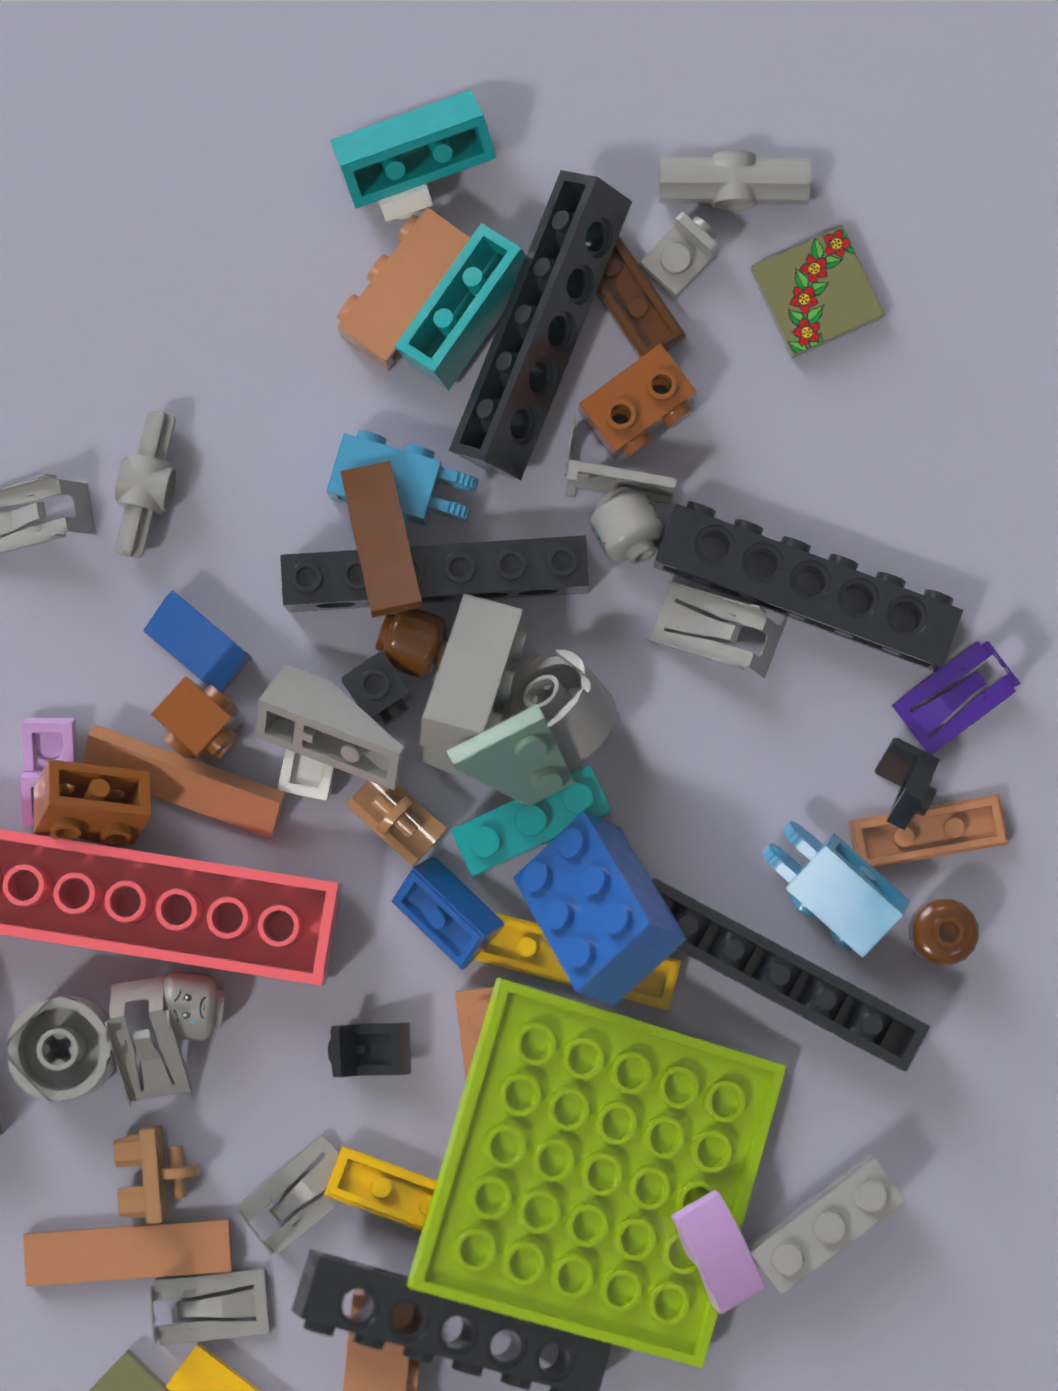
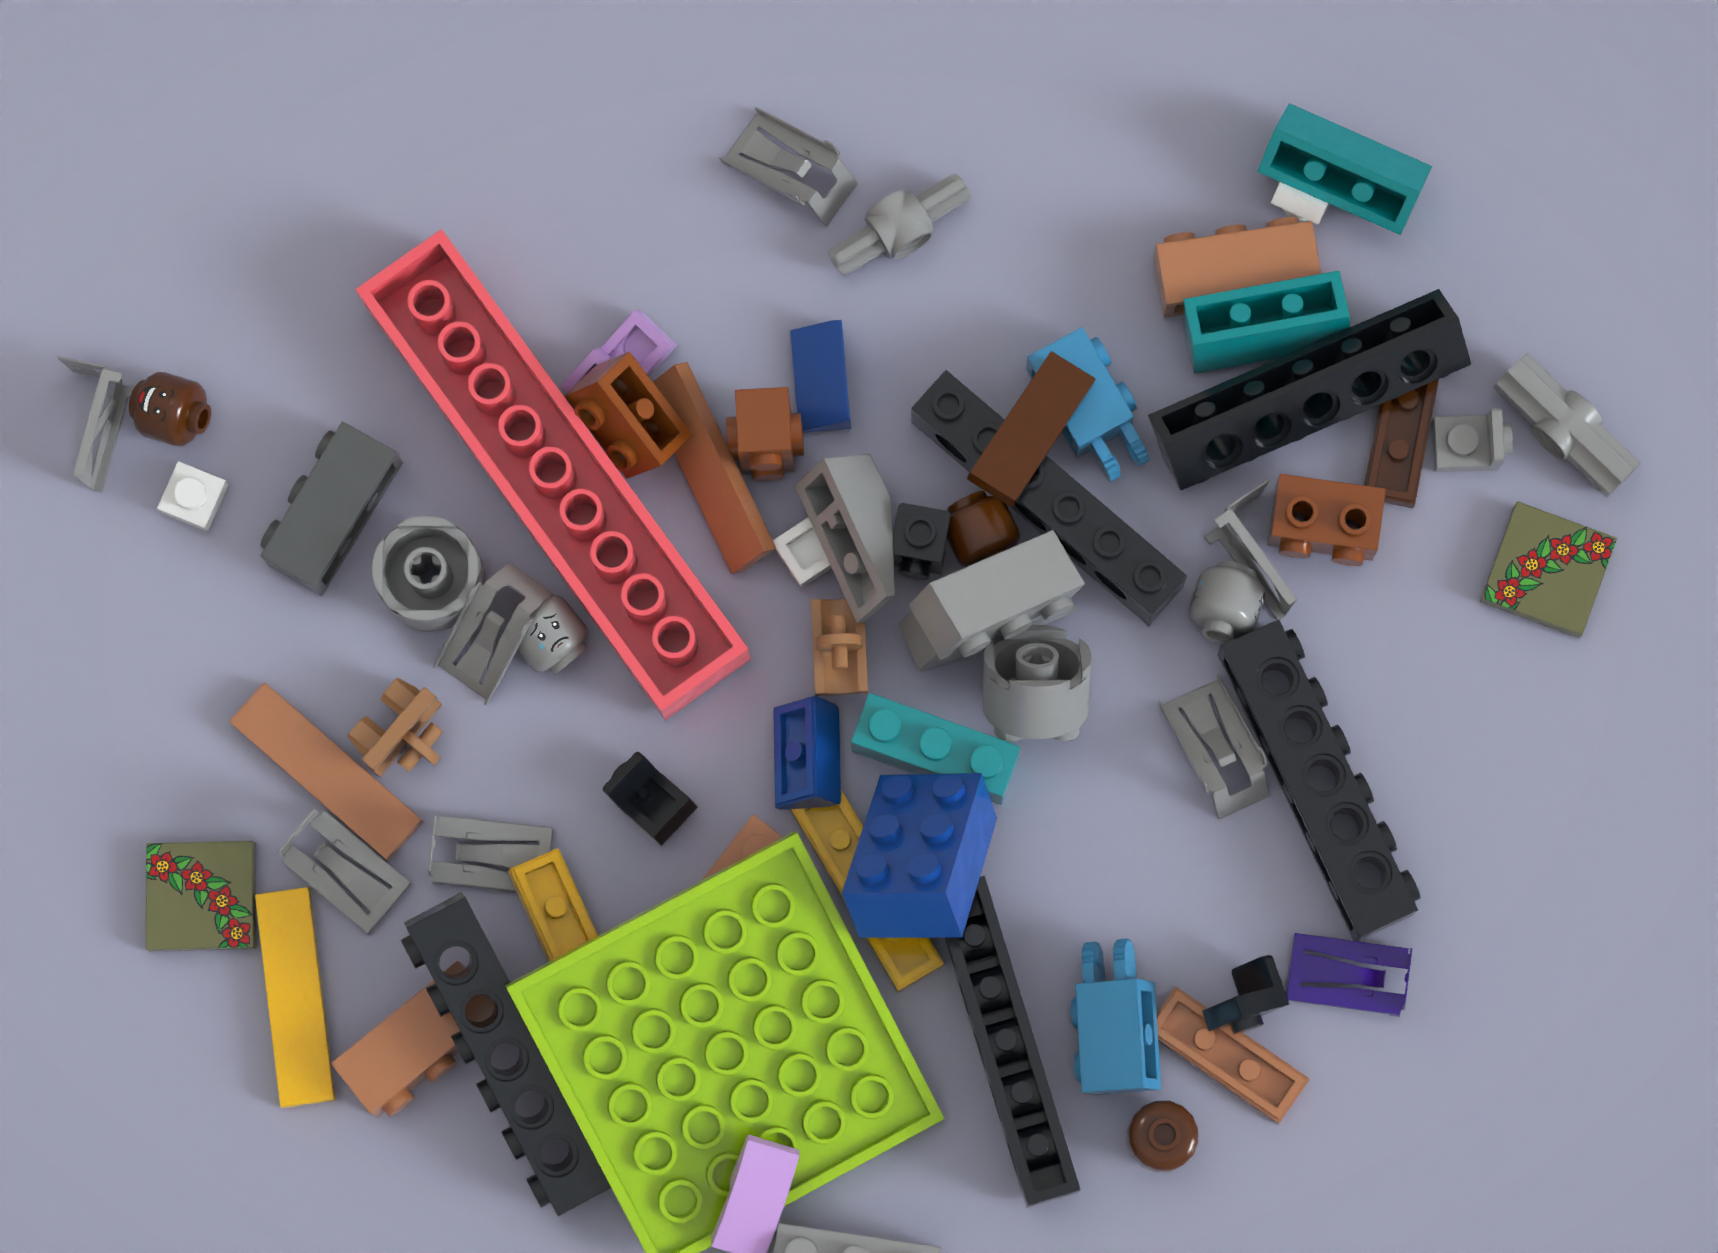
camera: 45 degrees right, 5 degrees down
(515, 758) = (968, 683): sand green wing -> none

